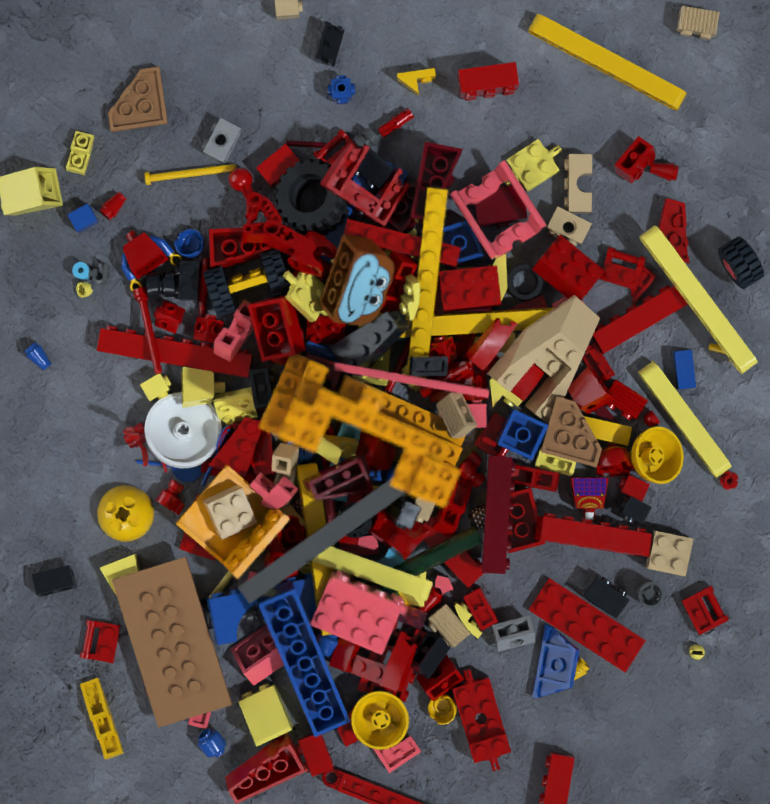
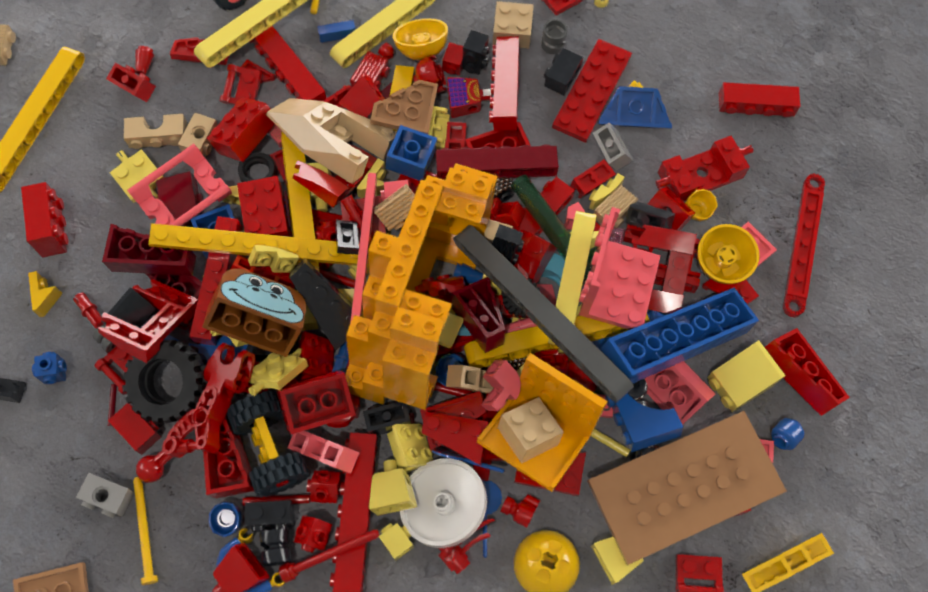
camera: 100 degrees left, 20 degrees down
(315, 753) = (774, 323): red brick -> none

